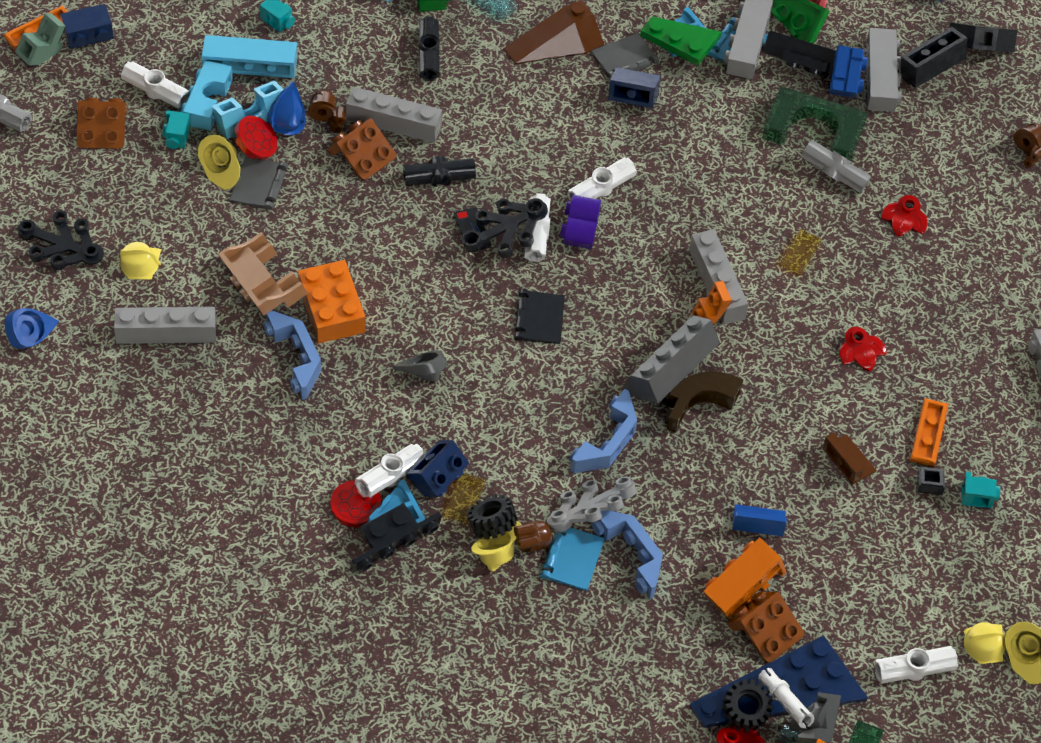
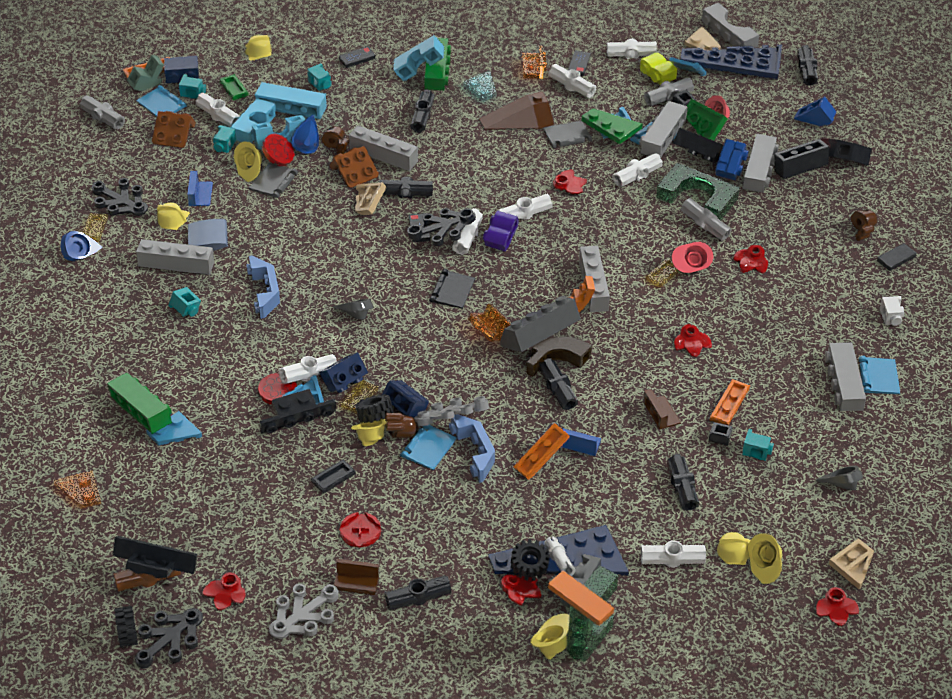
camera: 15 degrees right, 10 degrees down
(40, 291) = (95, 226): none -> clear yellow tile
(71, 80) = (161, 101): none -> dark azure piece
(108, 52) = (191, 87): none -> teal brick
(142, 696) = (80, 489): none -> clear orange wing
(164, 42) = (234, 87): none -> green tile
(166, 215) = (198, 192): none -> panel
(185, 557) = (140, 402): none -> brick
(197, 282) = (208, 233): none -> sand blue slope
(199, 393) = (185, 302): none -> teal brick
(238, 586) = (176, 431): none -> dark azure wing
(258, 285) = (247, 235): medium nougat bracket -> none
(332, 301) = (300, 257): orange brick -> none
(395, 194) = (368, 197): none -> tan wing
(464, 621) = (333, 476): none -> black tile
(519, 694) = (360, 529): none -> red tile
(528, 495) = (405, 398): none -> dark blue brick
(592, 458) = (462, 383): medium blue slope -> none
(606, 363) = (490, 322): none -> clear orange bracket
(634, 87) = (566, 151): dark blue brick -> none
(650, 132) = (569, 182): none -> plate
(713, 441) = (558, 384): none -> black piece
(720, 545) = (541, 451): none -> orange tile
(730, 101) = (637, 170): none -> white piece
(744, 577) = (554, 475): orange wedge -> none
(767, 624) = (564, 511): dark orange bracket -> none
(835, 223) = (692, 257): none -> coral piece
(902, 558) = (683, 482): none -> black piece

